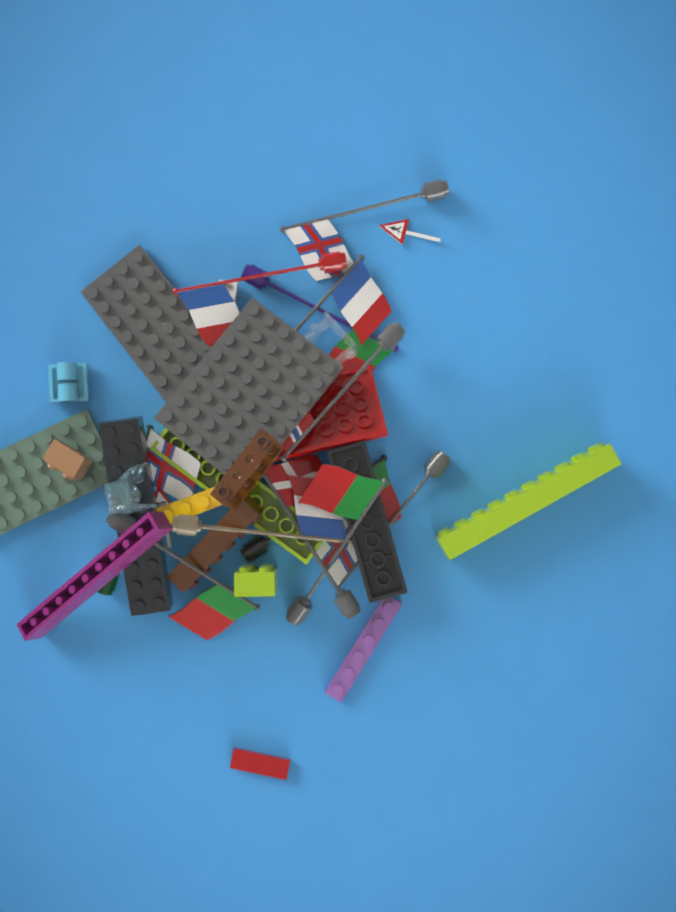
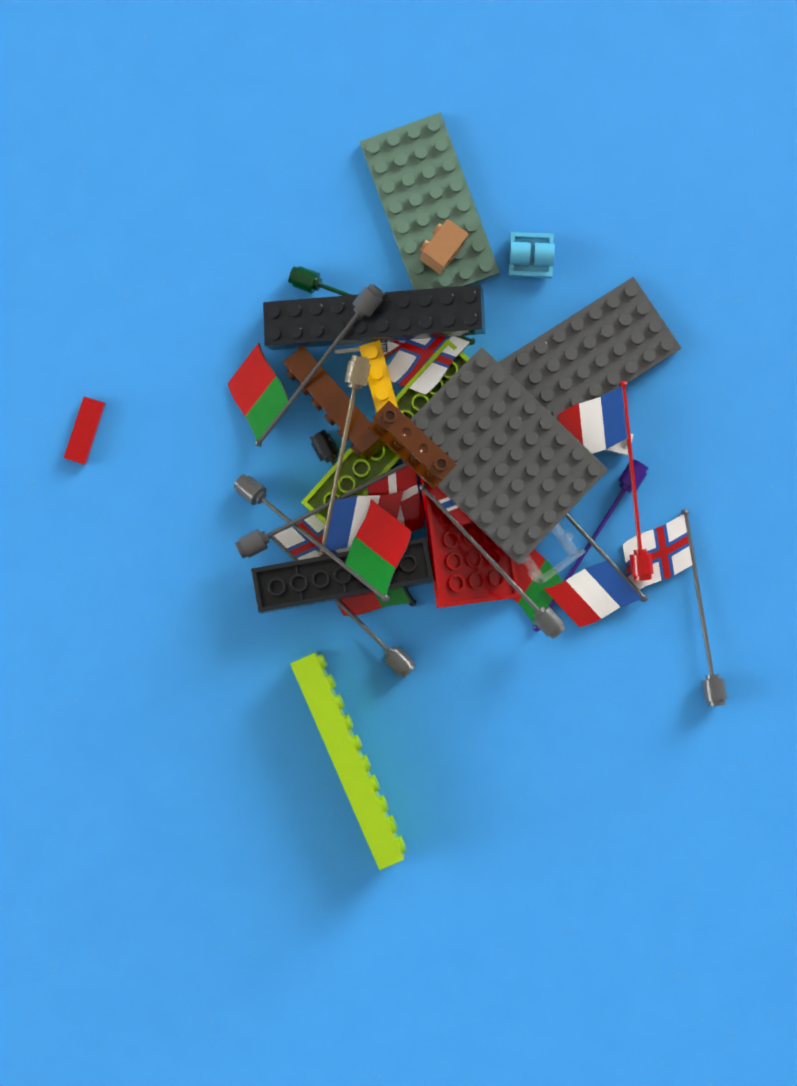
camera: 105 degrees right, 0 degrees up
(94, 575) = (312, 266): magenta brick -> none
(123, 495) = (396, 306): clear light blue helmet -> none
(256, 581) = (287, 444): lime brick -> none
(362, 648) = (200, 558): medium lavender plate -> none
(399, 229) = (673, 645): piece -> none

